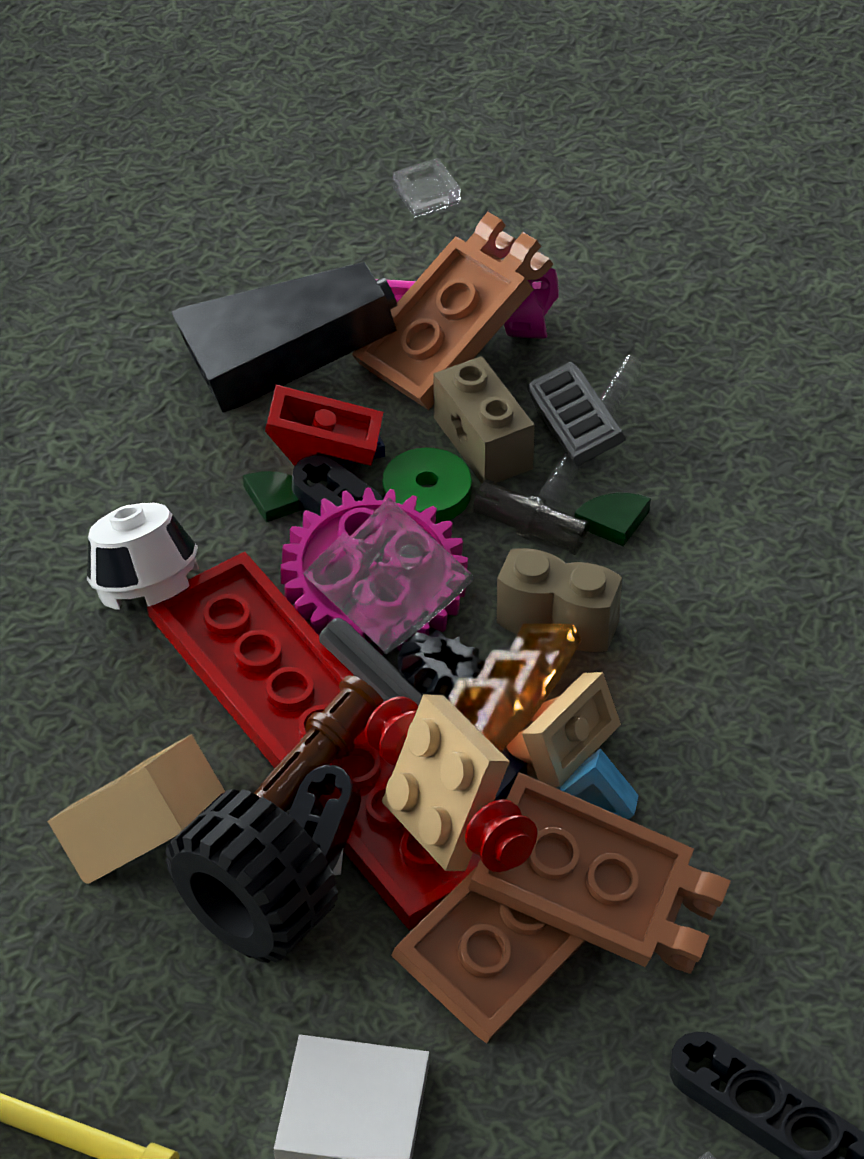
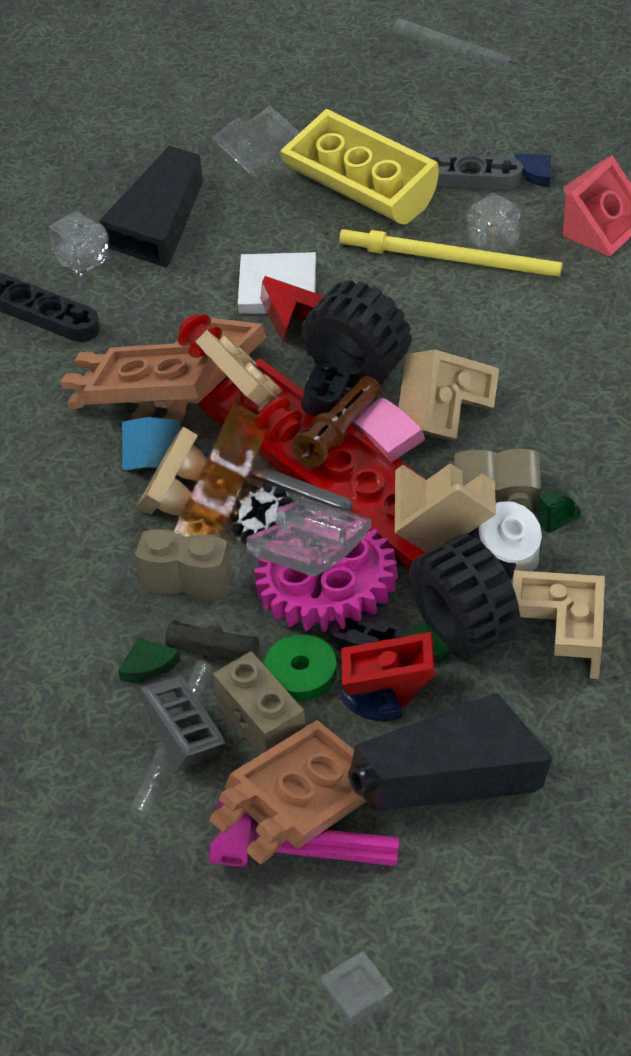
camera: 175 degrees right, 0 degrees up
(48, 622) = (556, 510): none -> dark green tile
(85, 472) = (574, 603): none -> tan panel
(111, 666) = (513, 470): none -> dark tan brick
(213, 468) = (465, 596): none -> black tyre
(214, 556) = (440, 507): none -> tan panel
(238, 740) = (389, 429): none -> bright pink slope
(329, 1001) = (285, 303): none -> red slope

